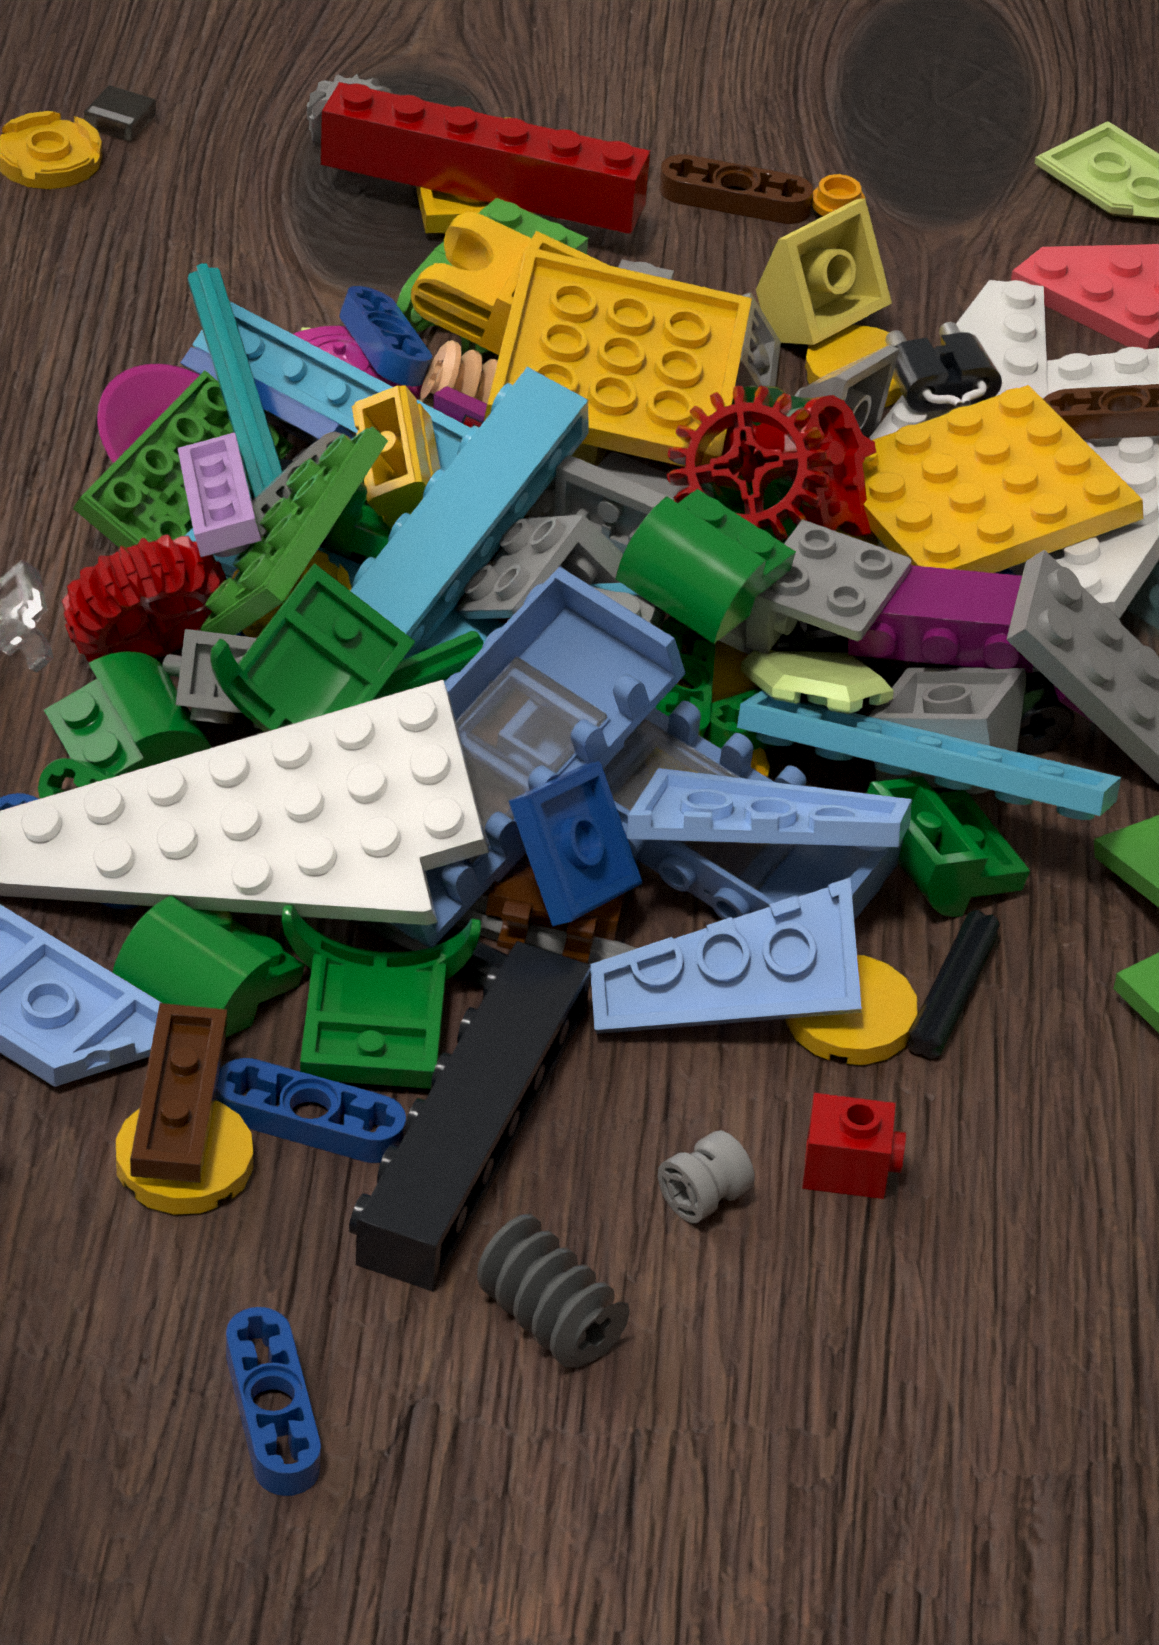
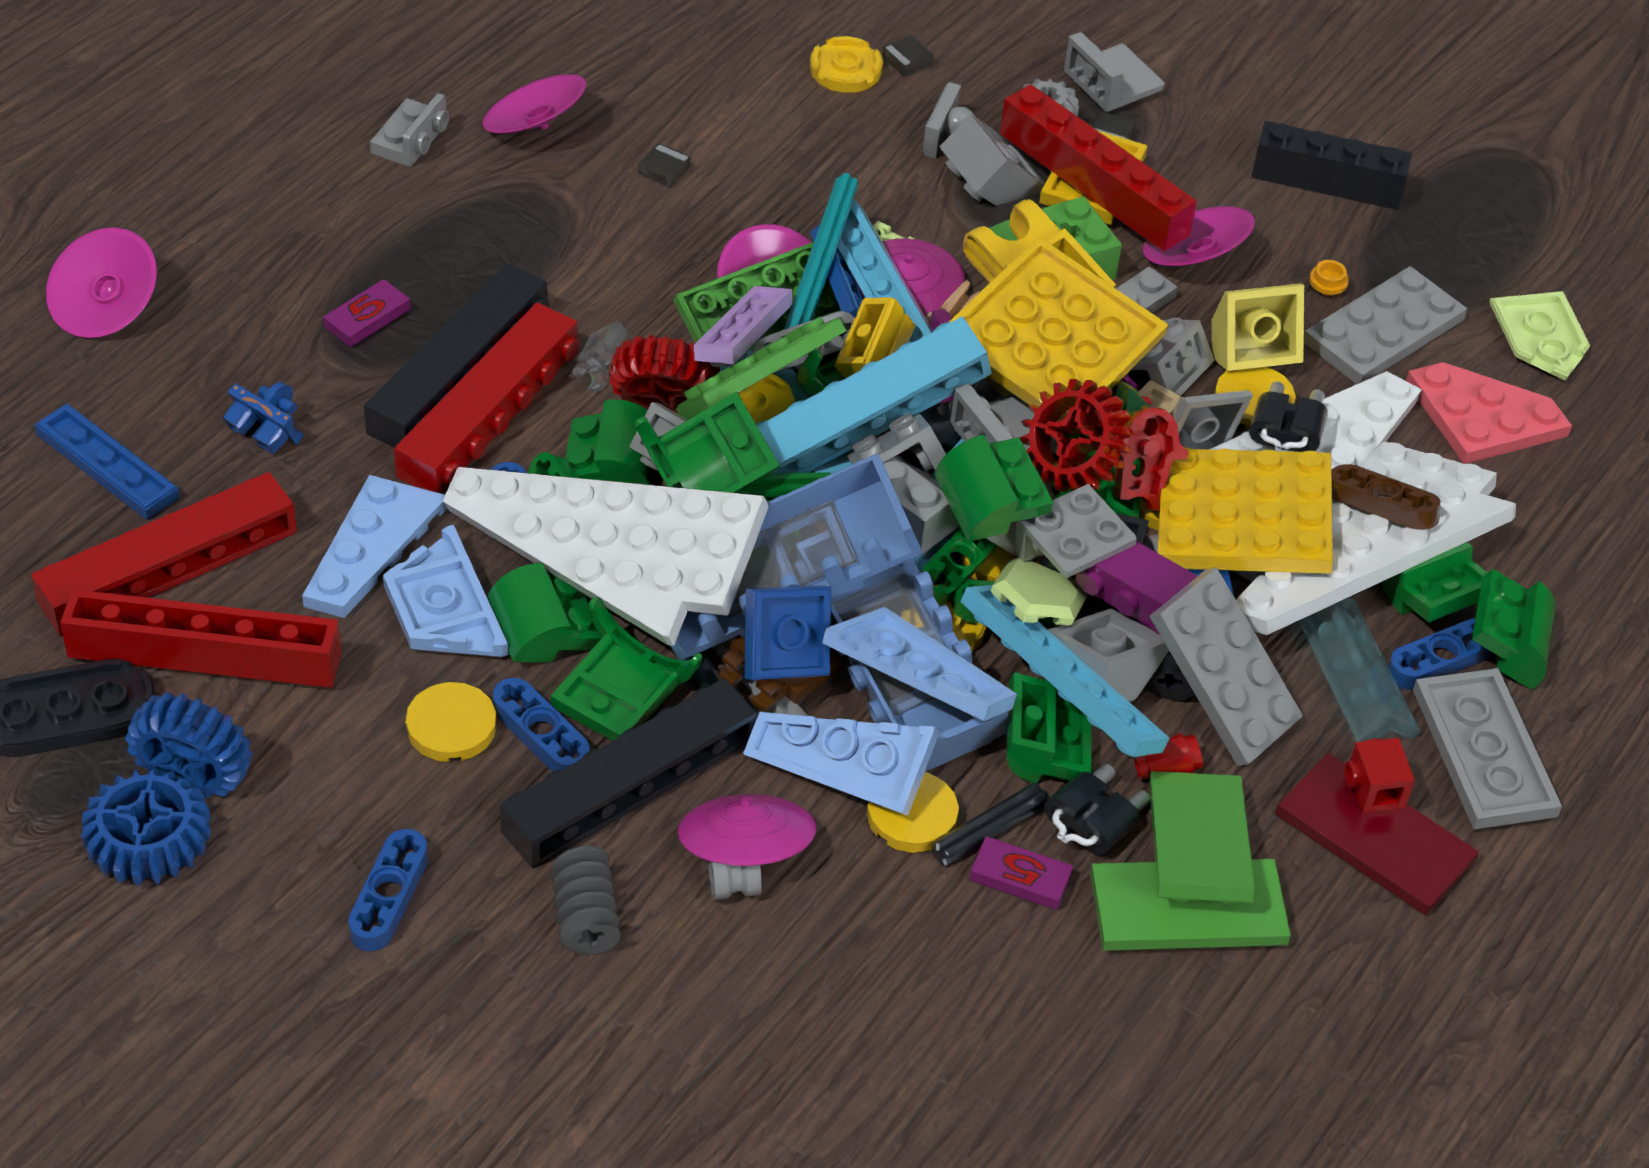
camera: 30 degrees right, 5 degrees up
(179, 1093) = (462, 683): reddish brown plate -> none
(243, 173) = (944, 119): none -> light grey tile
(335, 204) = (989, 164): none -> light grey slope
(385, 336) = (944, 262): blue beam -> none
(392, 49) = (1110, 75): none -> light grey bracket
(680, 195) = (1212, 235): none -> dark pink hat
(680, 1116) = (747, 830): none -> dark pink hat
(744, 66) = (1331, 165): none -> black brick
(765, 195) = (1286, 261): reddish brown beam -> none
(852, 1146) = (836, 895): red brick -> none
(944, 229) = (1384, 325): none -> light grey plate
(1035, 1024) = (1021, 873): none -> magenta tile
(1051, 914) = (1092, 812): none -> black piece
(1078, 836) = (1179, 755): none -> red cone

